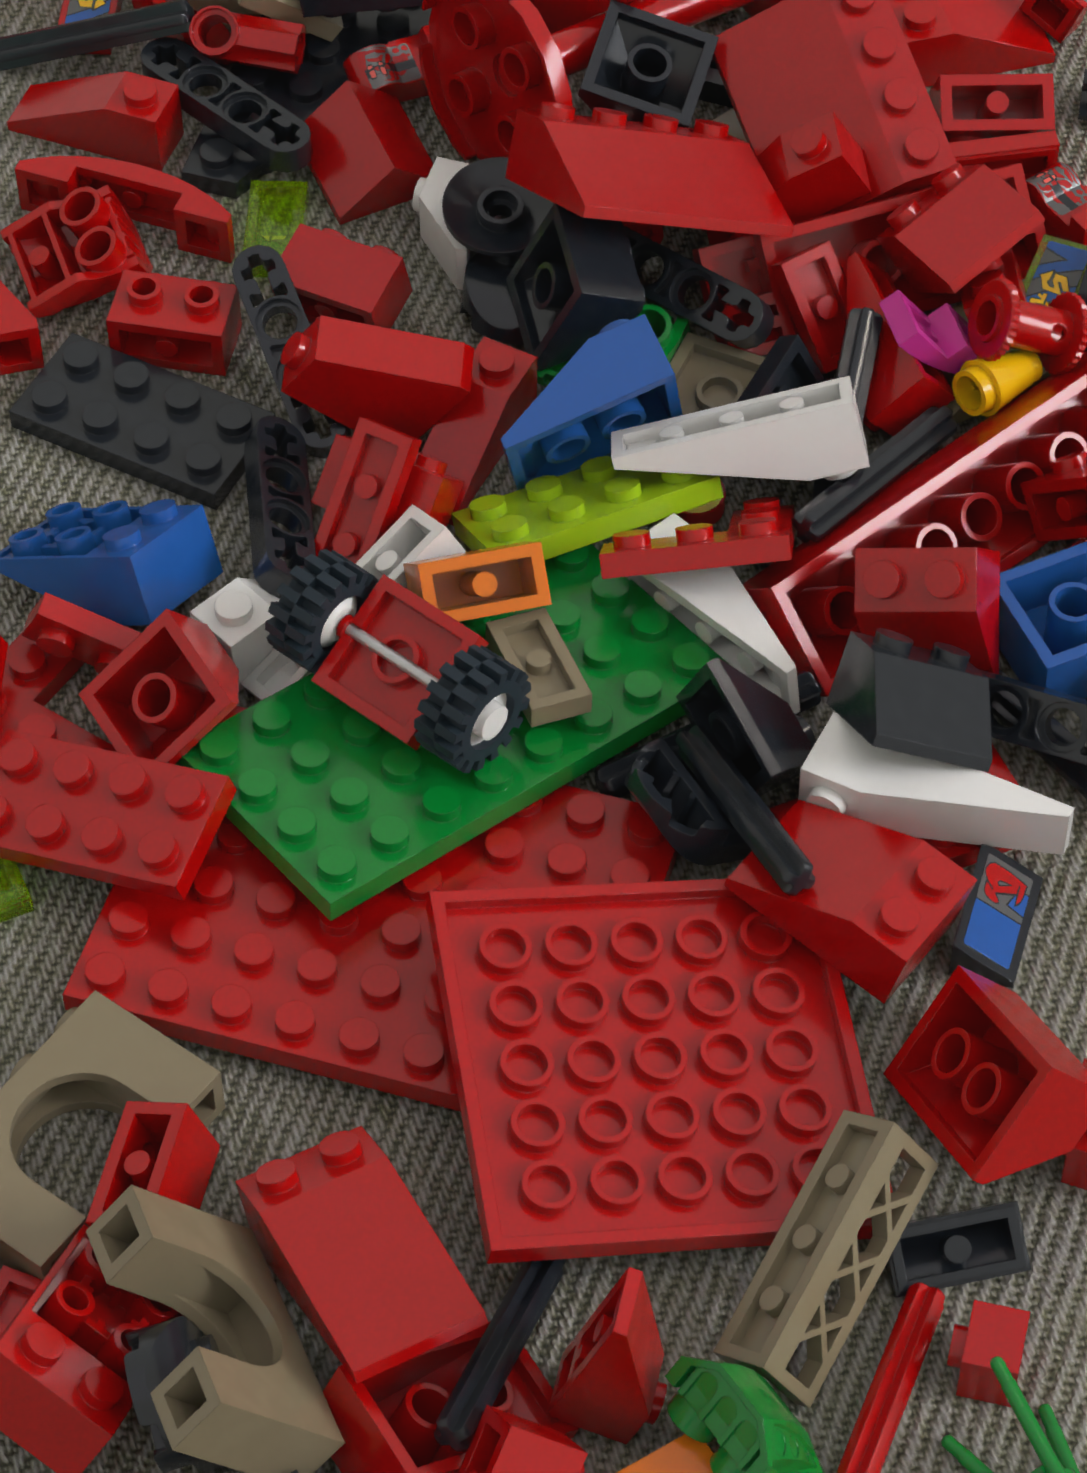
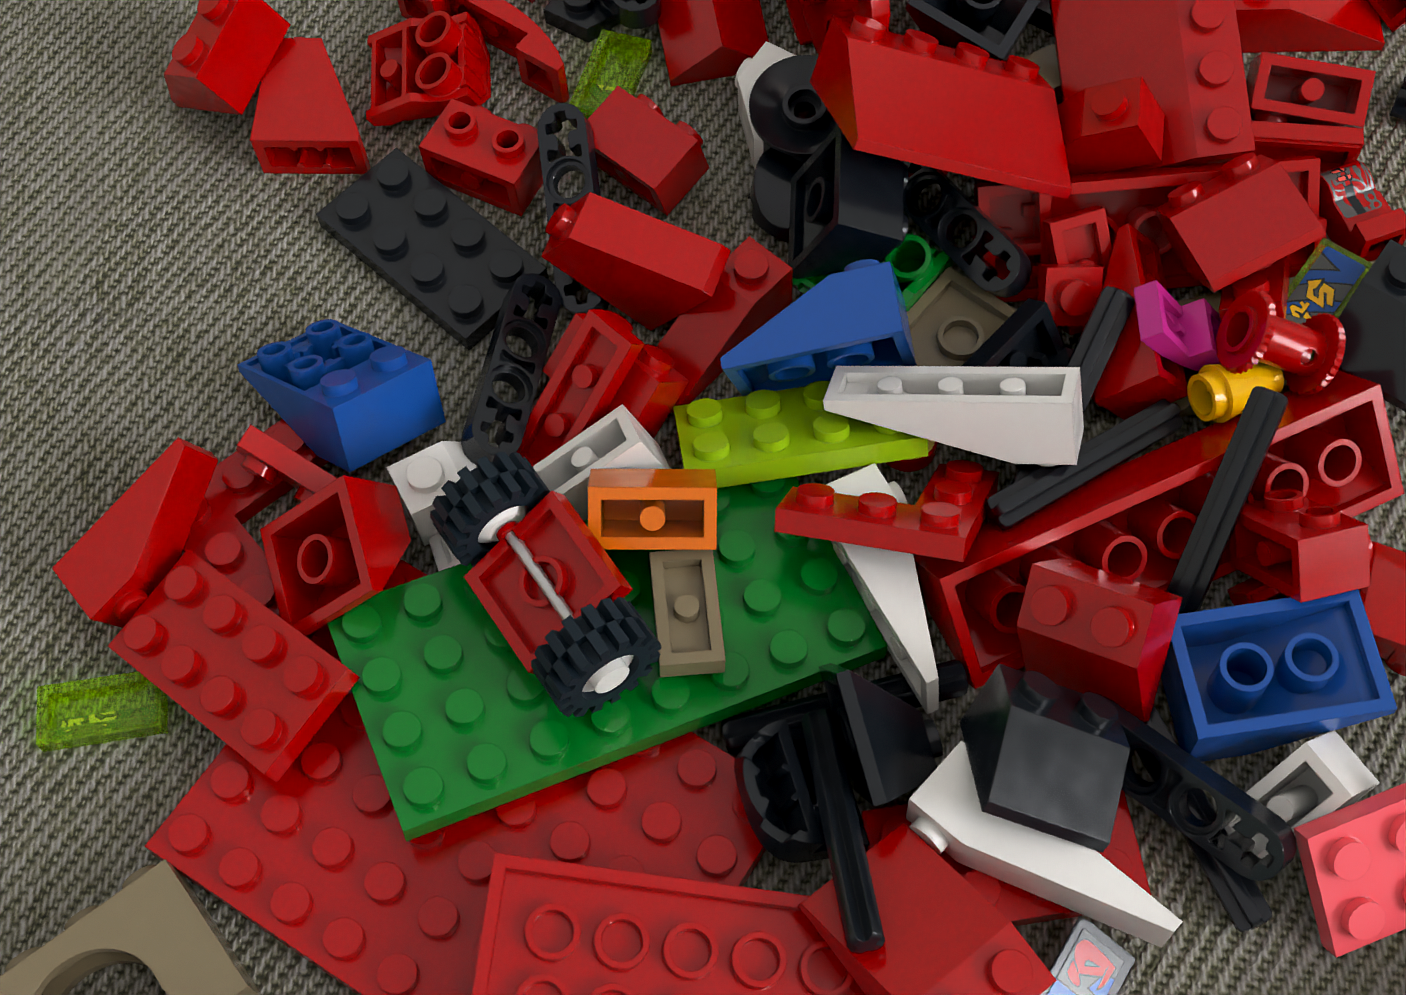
camera: 20 degrees right, 10 degrees up
(818, 325) = (1069, 291): none -> red plate
(1018, 460) = (1227, 497): none -> black axle

